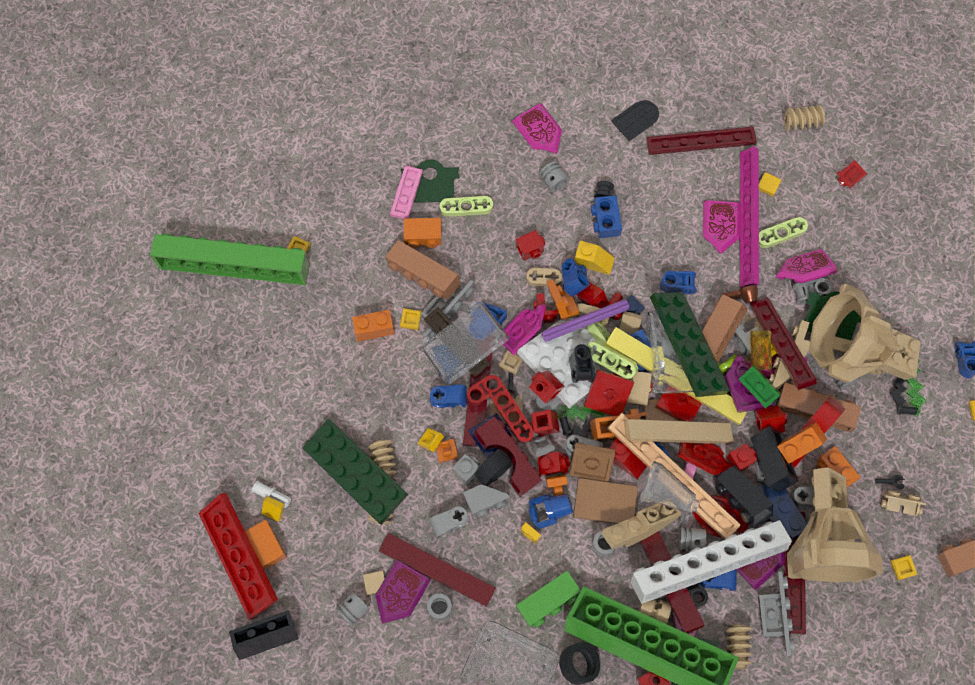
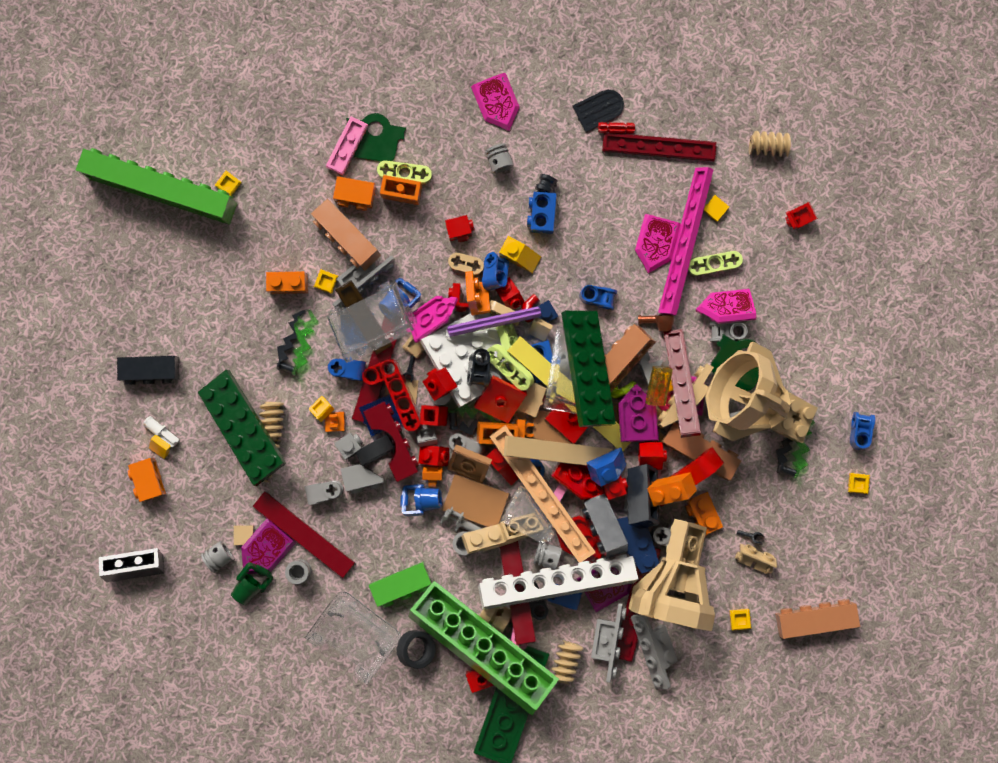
camera: 10 degrees right, 15 degrees up
(238, 556) = (119, 486): red plate -> none
(248, 434) = (148, 369): none -> black brick
(388, 635) = (248, 586): none -> dark green piece
(394, 374) = (297, 334): none -> piece
(467, 220) = (401, 190): none -> orange brick
(530, 533) = (397, 518): yellow tile -> none
(595, 523) = (460, 521): none -> light grey piece
(657, 131) = (603, 127): none -> red axle
(729, 438) = (607, 467): none -> blue slope
(760, 386) = (647, 423): green plate -> none
(827, 614) = (656, 650): none -> light grey bracket

